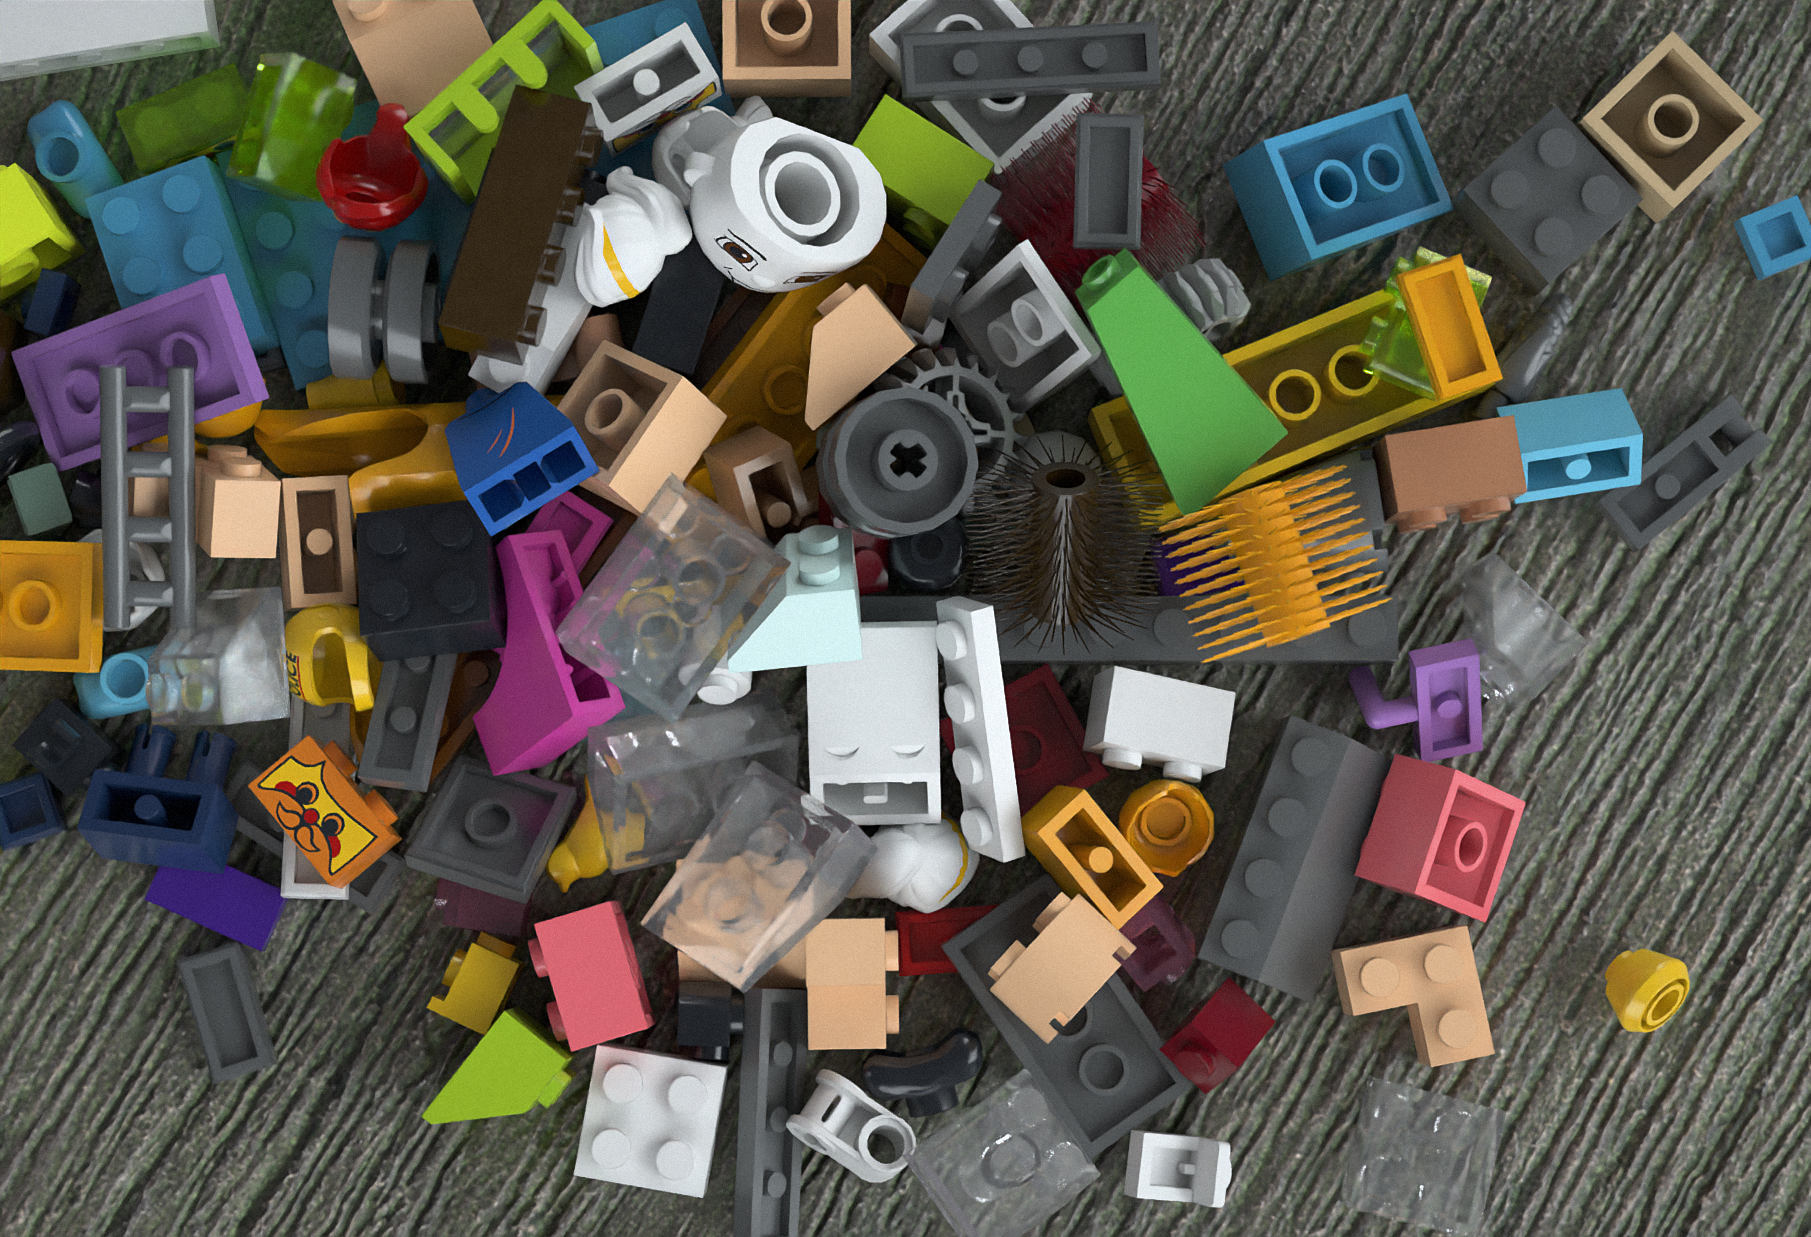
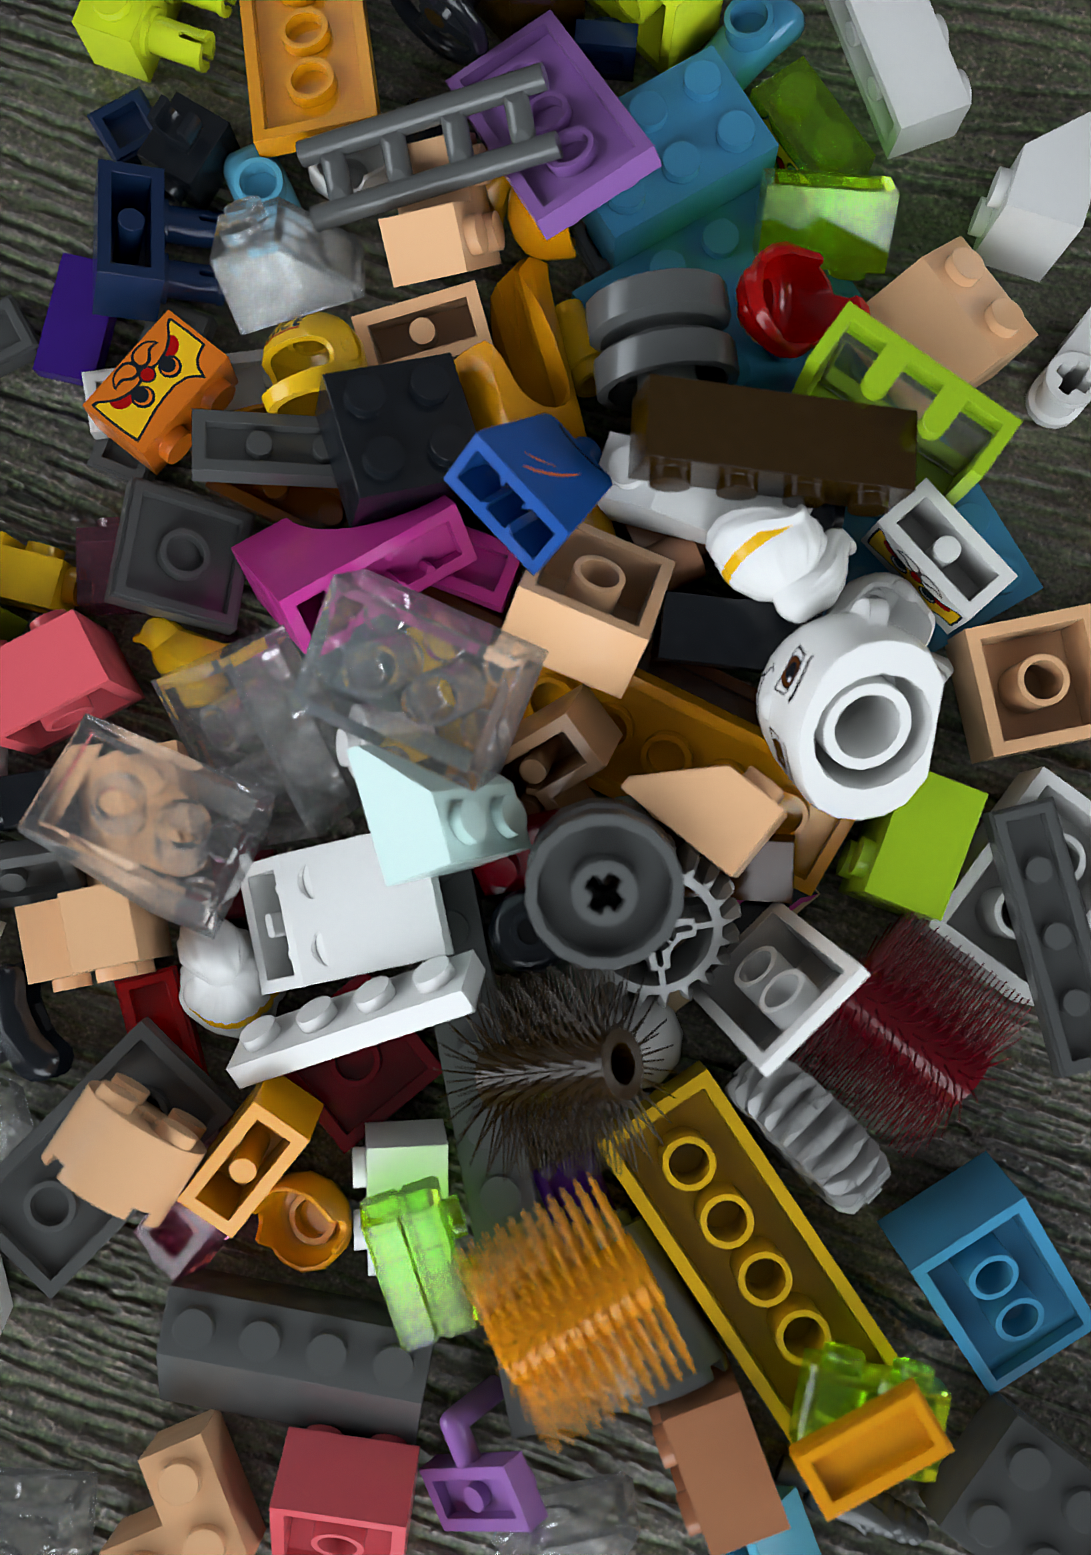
camera: 85 degrees right, 0 degrees up
(40, 502) = (413, 71): sand green slope -> none
(962, 245) = (848, 905): dark grey plate -> none
(1108, 181) = (952, 1049): dark grey tile -> none
(1180, 390) = (743, 1167): bright green slope -> none
(1217, 707) = (413, 1251): none -> clear neon green brick
(1217, 1035) = (100, 1316): dark red brick -> none

